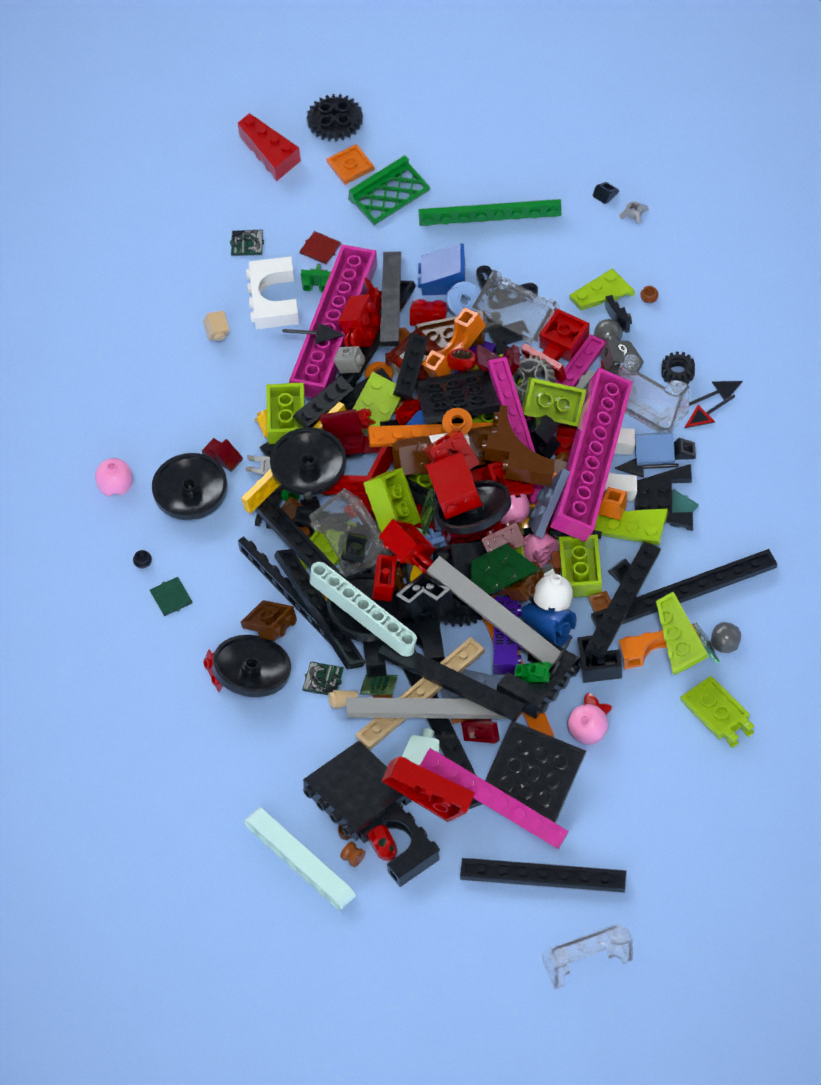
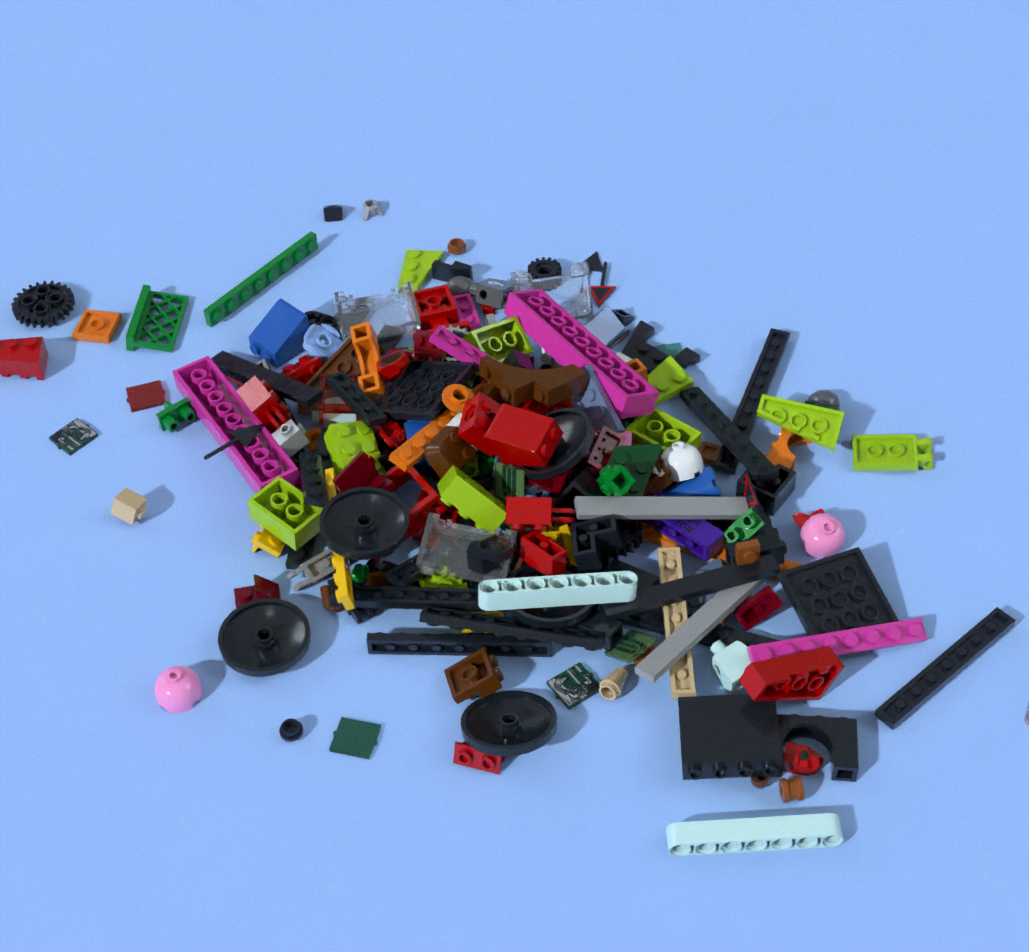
camera: 50 degrees left, 10 degrees down
(266, 312) = (157, 468): white arch -> none
(470, 572) = (615, 480): none -> green brick
(505, 689) = (747, 552): none -> dark orange plate
(619, 570) = (692, 420): black slope -> none

